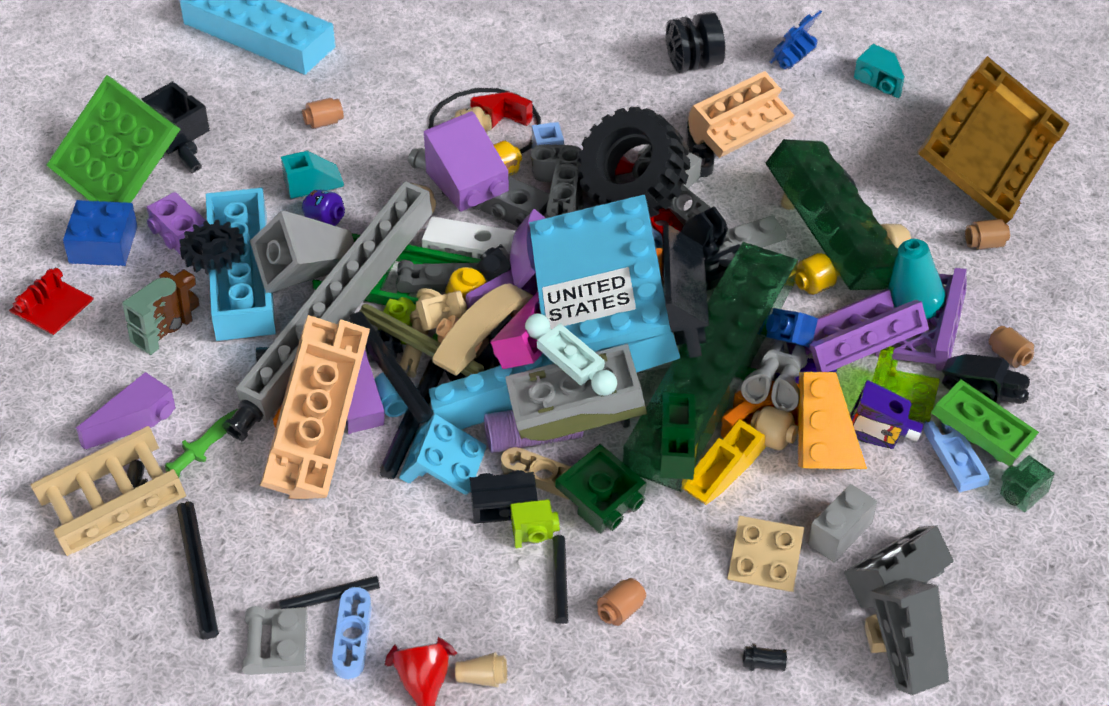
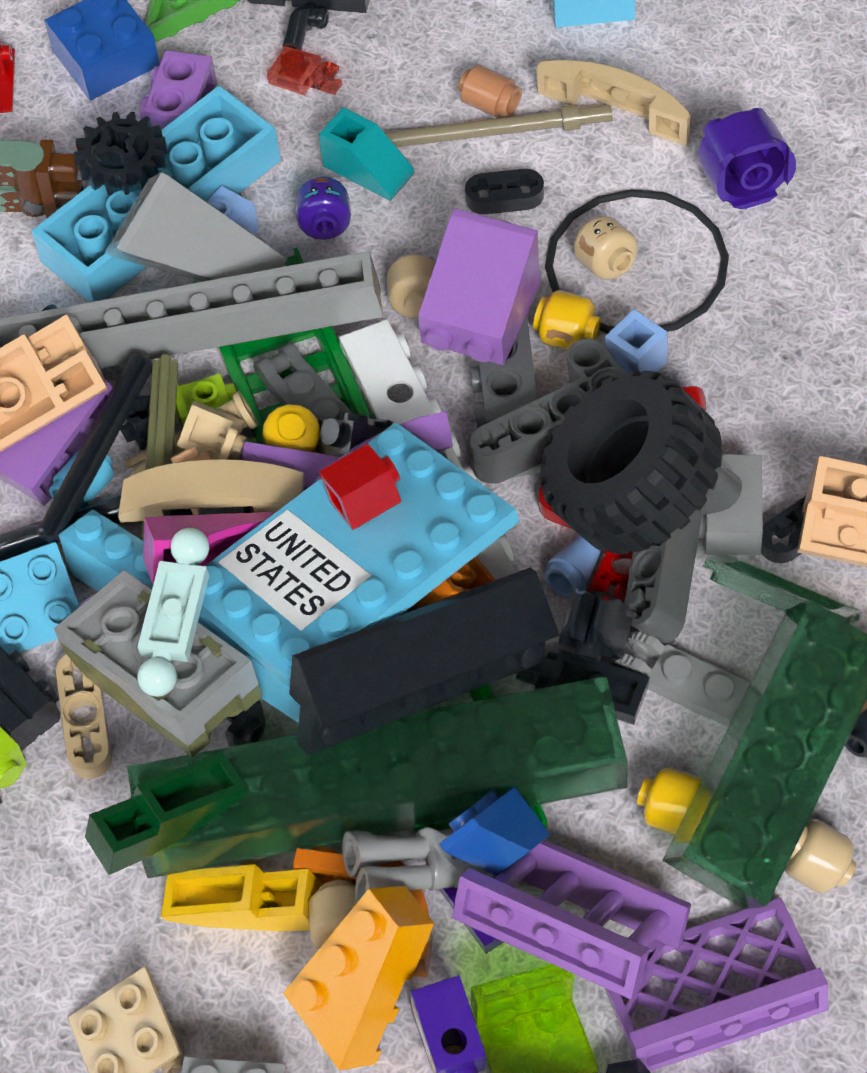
camera: 60 degrees right, 10 degrees up
(218, 174) = (300, 70): none -> clear red plate
(369, 99) = (569, 118): none -> dark tan bar
(382, 68) = (619, 88): none -> tan slope
(385, 140) = (504, 191): none -> black beam
(478, 48) = (745, 158): none -> dark purple brick
(504, 105) = (666, 252): red slope -> none
(570, 242) = (361, 485): none -> red brick
(602, 489) = (77, 779): dark green plate -> none
(732, 174) = (771, 588): none -> clear green piece
(916, 278) = (730, 936): teal cone -> none

